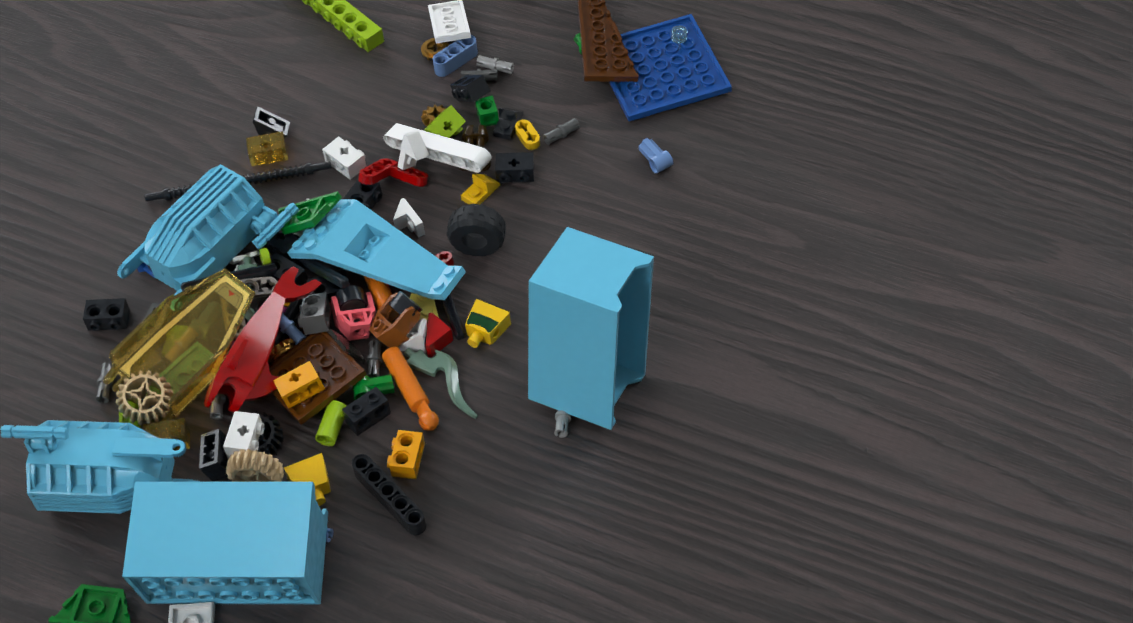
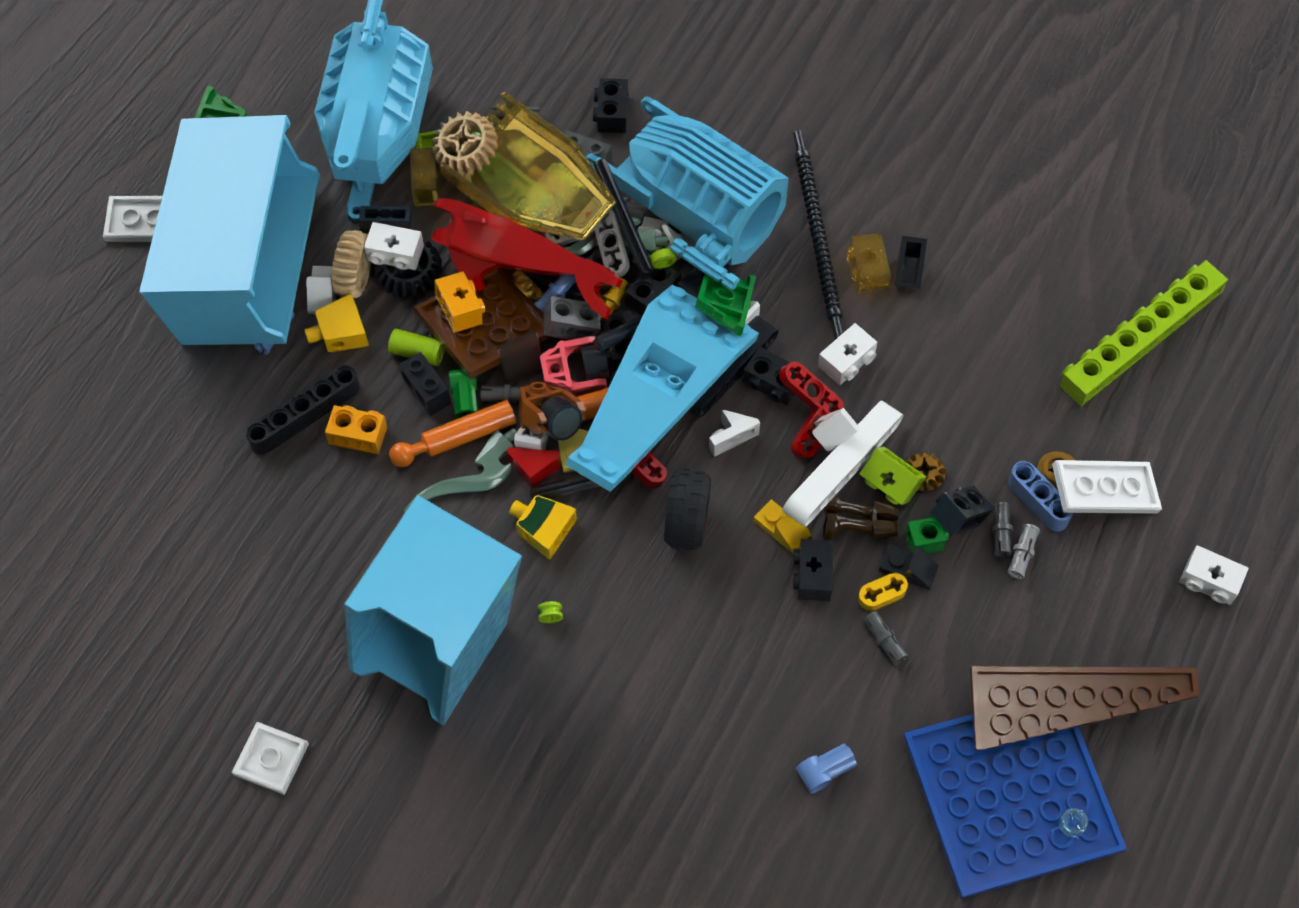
camera: 90 degrees right, 10 degrees up
(682, 477) = (270, 758): none -> white tile

